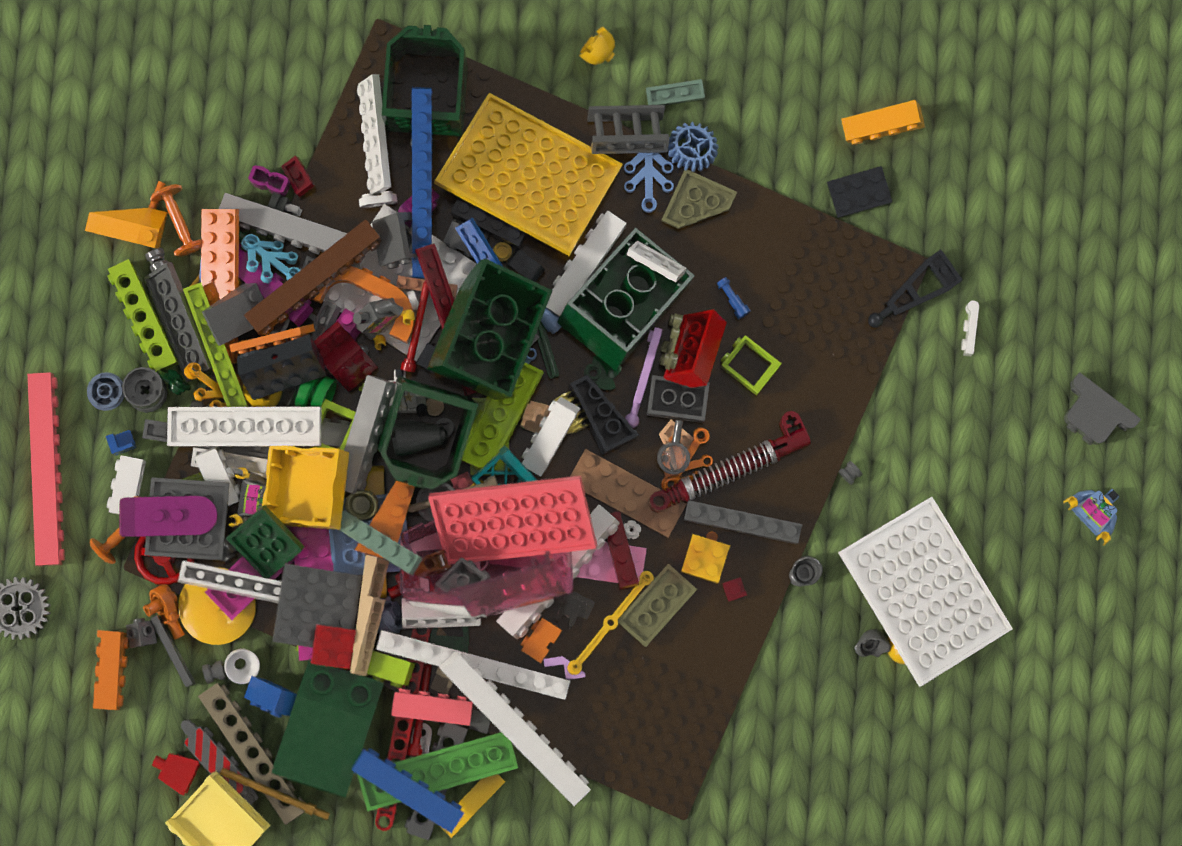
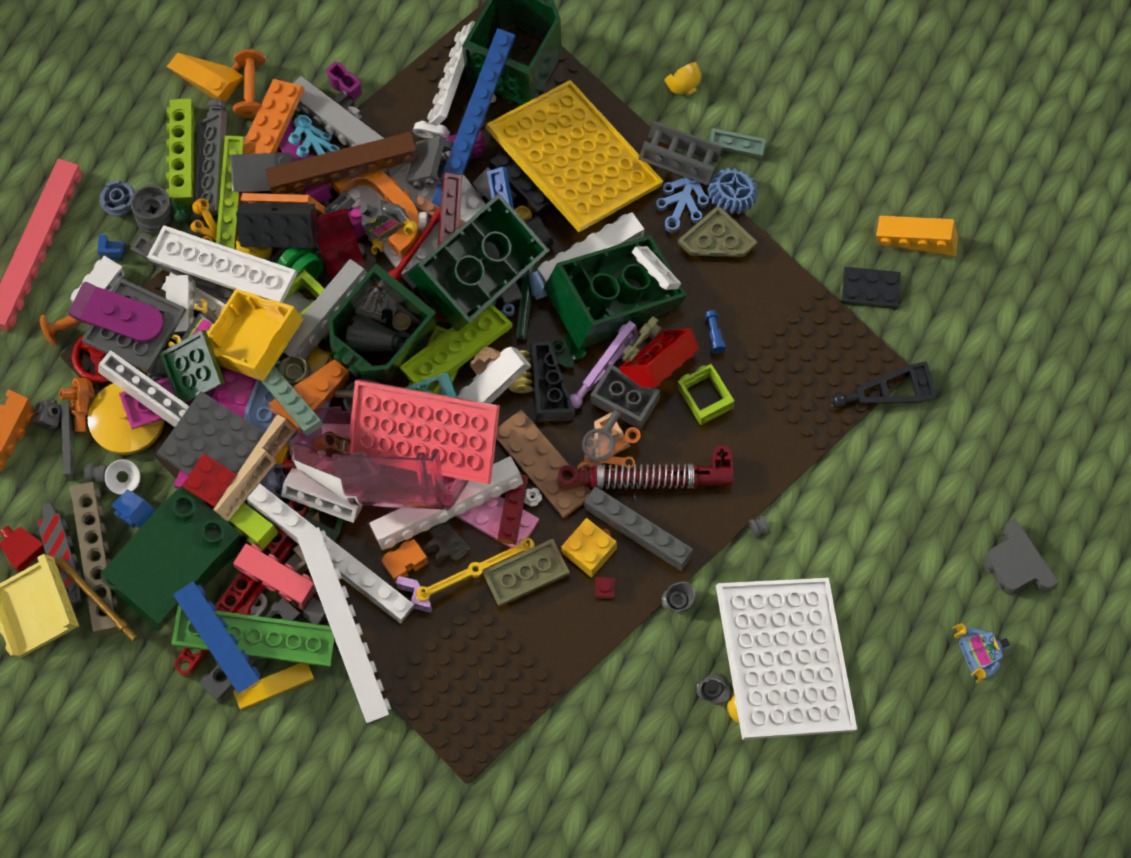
camera: 25 degrees right, 15 degrees down
(297, 176) = (371, 87): dark red plate -> none
(970, 327) = (926, 442): white plate -> none

